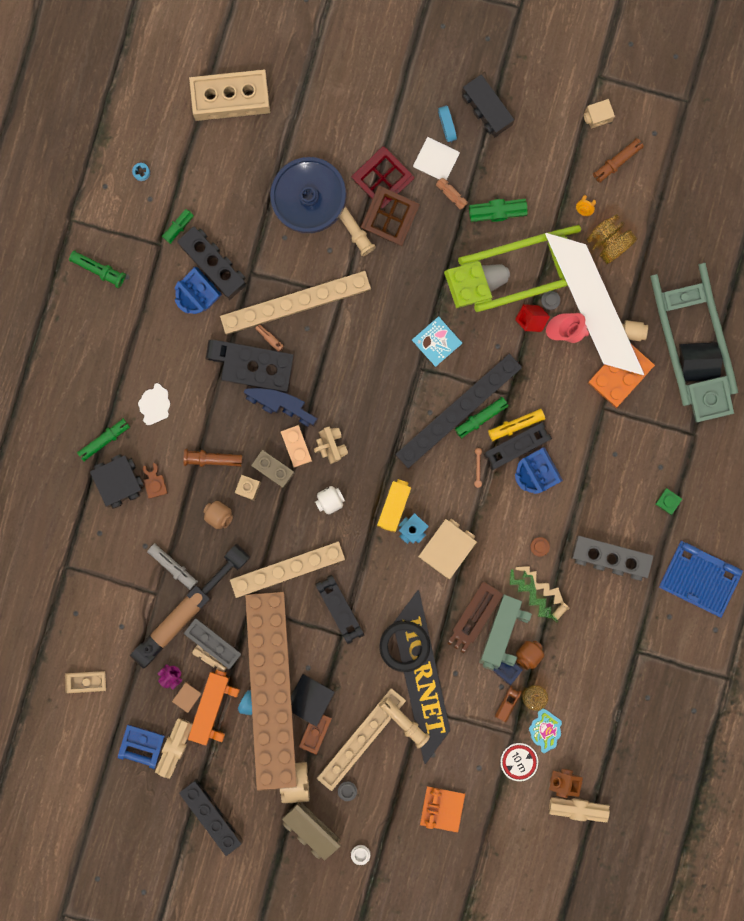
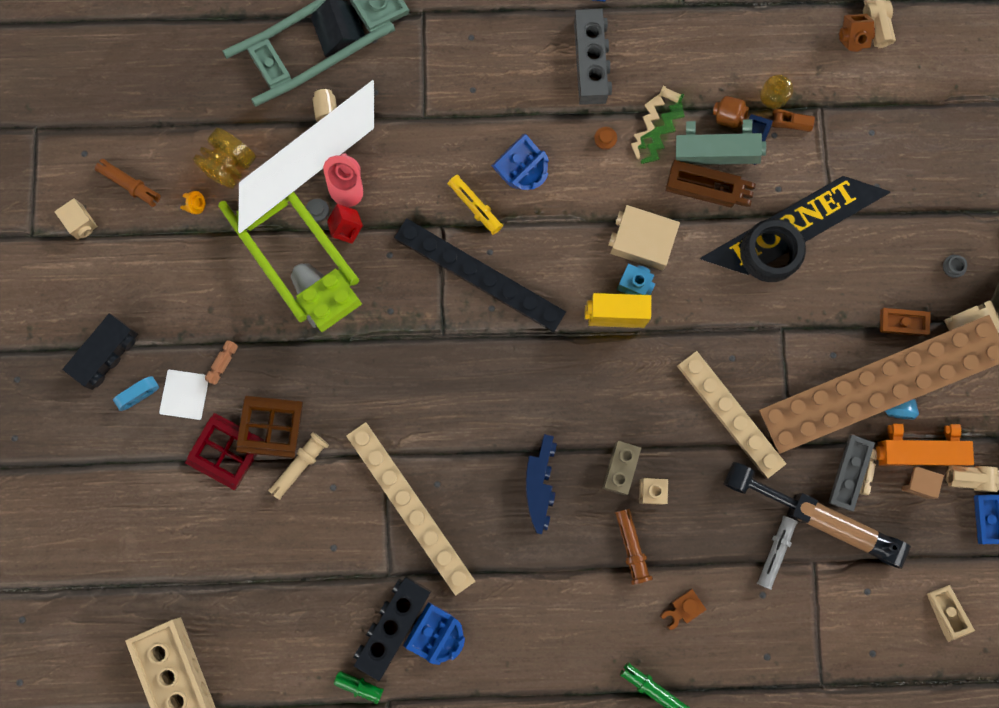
camera: 110 degrees left, 5 degrees down
(117, 481) = (701, 655): black brick -> none
(154, 404) = (589, 641): white sticker -> none
(169, 676) = (908, 511): magenta gear -> none
(218, 515) = (697, 517): medium nougat head -> none
(238, 356) = (499, 555): black hinge -> none
(270, 338) = (463, 525): nougat piece -> none
(296, 446) = (583, 450): light nougat plate -> none
(308, 195) = (272, 534): dark blue dish -> none
(310, 700) = (871, 338): black slope -> none
(328, 446) = (571, 412): tan hips -> none
(329, 500) = (635, 389): white head -> none
(339, 609) = (755, 339): black plate -> none
(358, 742) = (893, 268): tan plate -> none
(410, 728) = (861, 215): tan pin -> none
(437, 341) = (405, 326): medium azure sticker -> none
(442, 809) = (934, 157): orange hinge -> none
(474, 422) = (486, 251): green pin -> none
(478, 451) = (556, 229): nougat hinge -> none
(498, 210) = (226, 301): green piece -> none
(517, 446) = (499, 196): black plate -> none
(519, 762) = (849, 92): sticker -> none
(545, 730) = (805, 73): sticker -> none
(617, 383) = (391, 108): orange plate -> none
(668, 501) = (507, 17): green plate -> none

